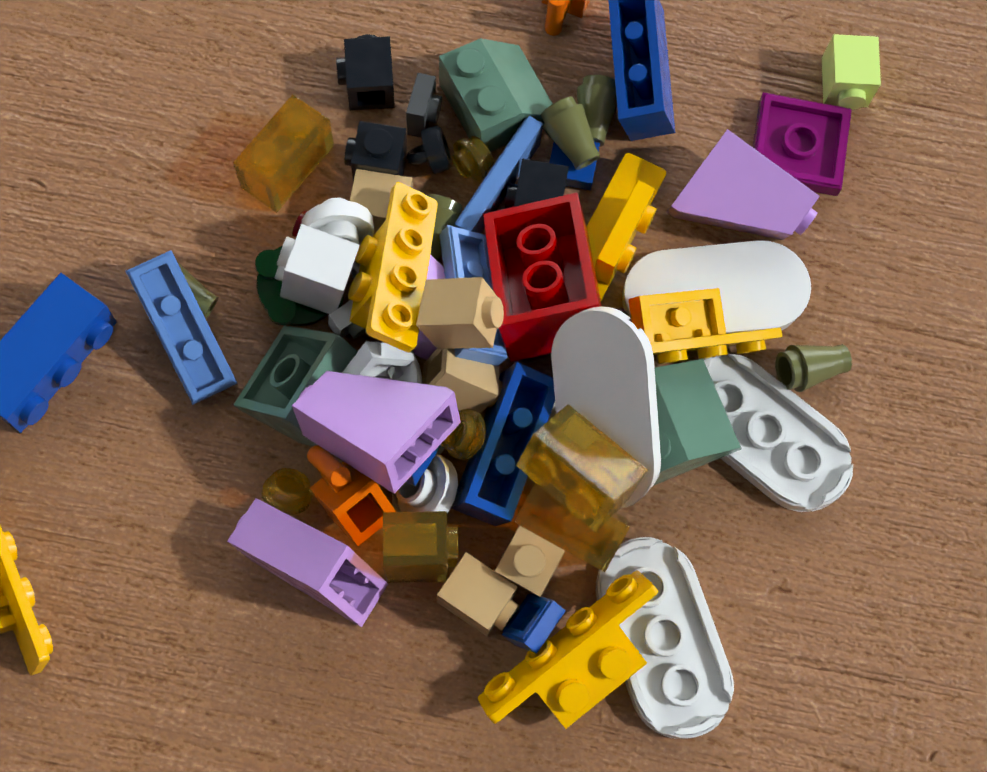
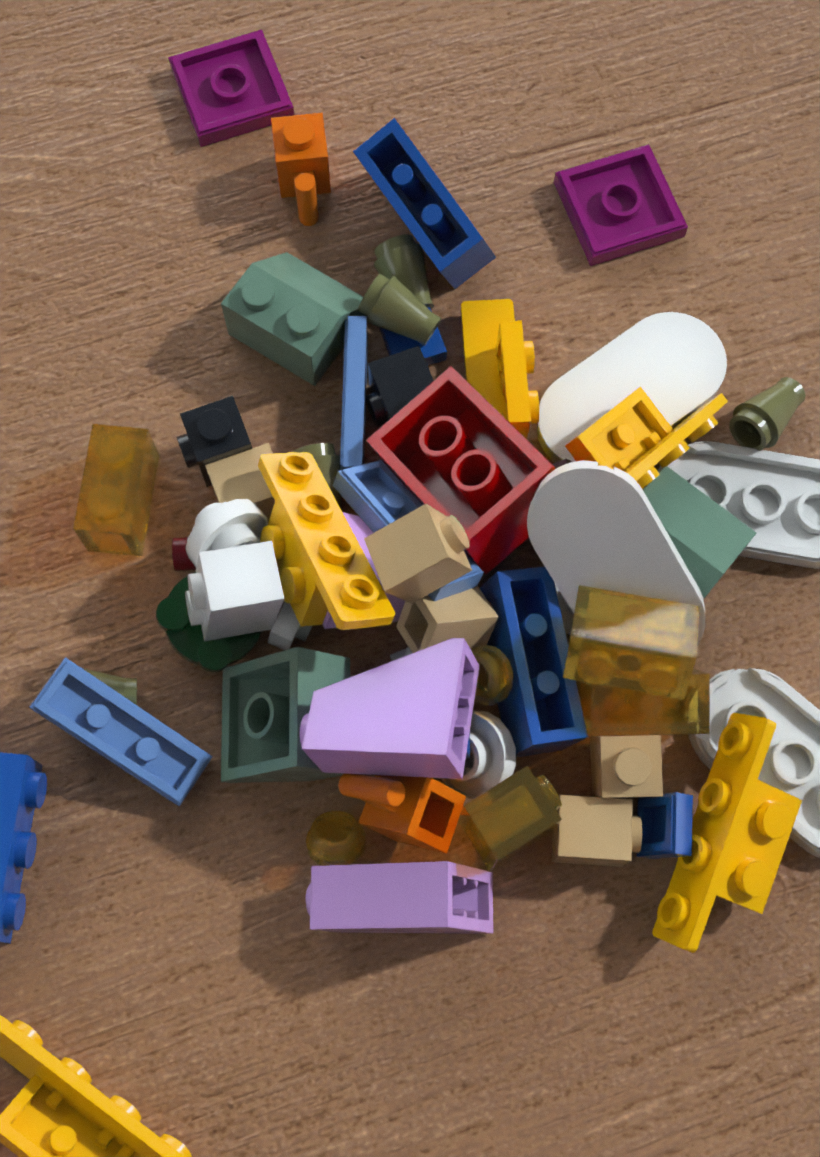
camera: 25 degrees left, 0 degrees up
(367, 72) = (152, 360): black brick -> none
(385, 362) = (362, 650): white plate -> none
(423, 105) = (231, 363): dark grey plate -> none
(434, 150) = (267, 405): black tile -> none
(472, 158) = (312, 390): clear yellow plate -> none
(745, 193) = (602, 278): lavender slope -> none
(851, 71) = (627, 107): yellowish green brick -> none

